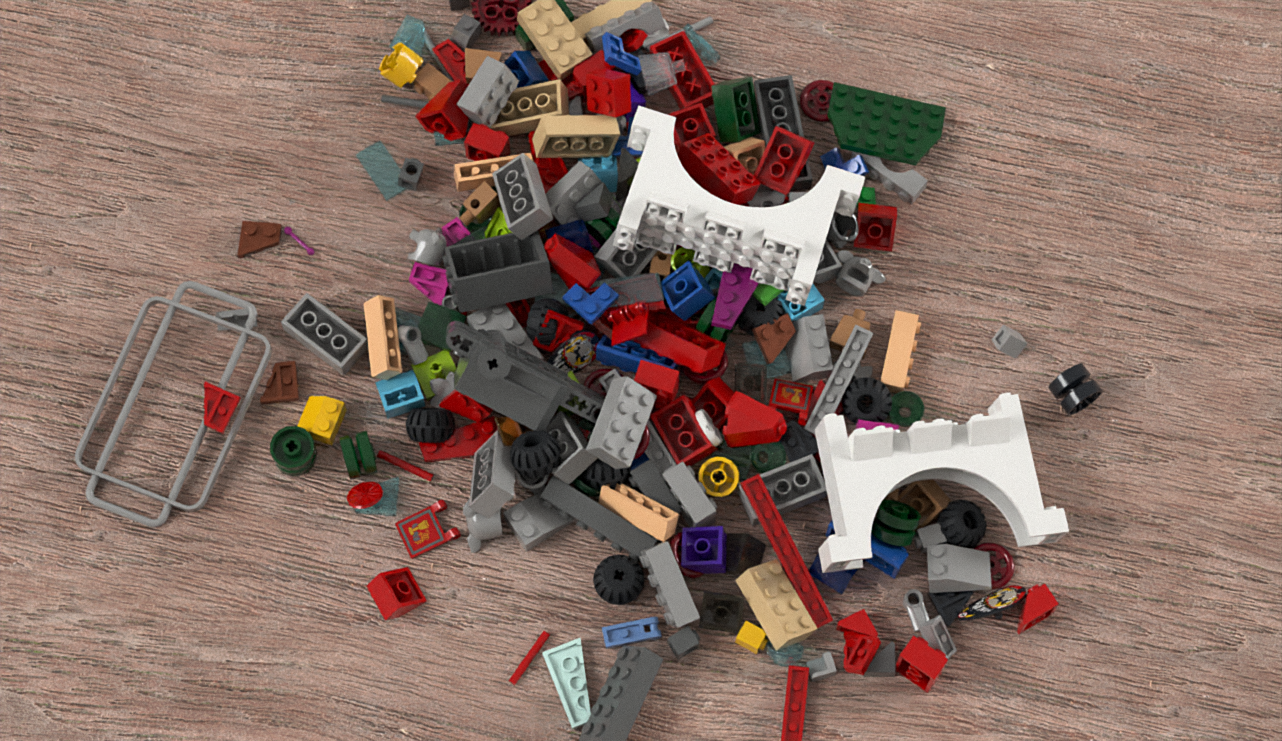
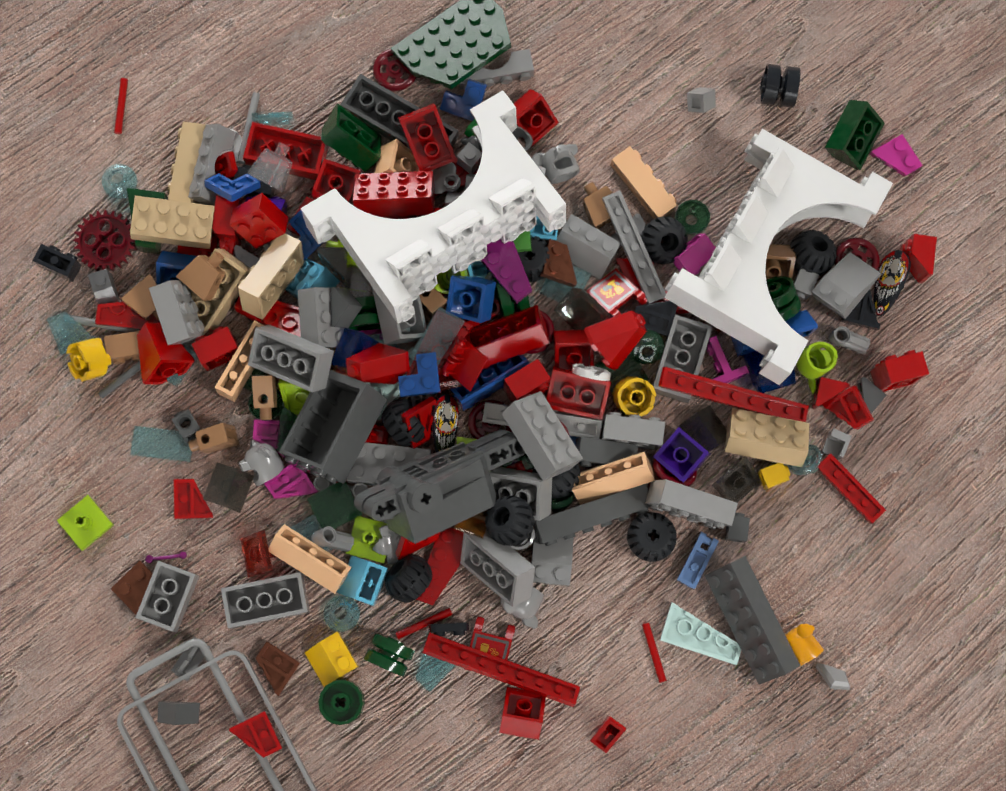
camera: 55 degrees left, 10 degrees up
(188, 337) = (178, 712): none -> dark grey slope
(269, 263) = (167, 596): none -> light grey brick
(277, 164) = (85, 522): none -> lime tile
(355, 222) = (189, 501): none -> red wing
(355, 299) = (256, 554): none -> clear red tile
(362, 408) = (351, 618): none -> clear light blue piece
(364, 495) = (425, 675): red wheel -> none
(389, 241) = (228, 487): none -> clear smoke slope
(412, 480) = (456, 628): none -> black plate
(416, 549) = (501, 669): none -> red plate
(418, 201) = (214, 438): none -> medium nougat torso
(434, 671) = (608, 734): none -> red slope
(531, 88) = (203, 275): none -> medium nougat torso
(801, 537) = (721, 364): none -> dark pink bracket
(872, 593) = (814, 362): none -> lime piece
(937, 636) = (884, 343): light grey slope -> none
(1092, 482) = (855, 134): none -> dark green slope
(1108, 530) = (898, 155): none -> dark pink wing

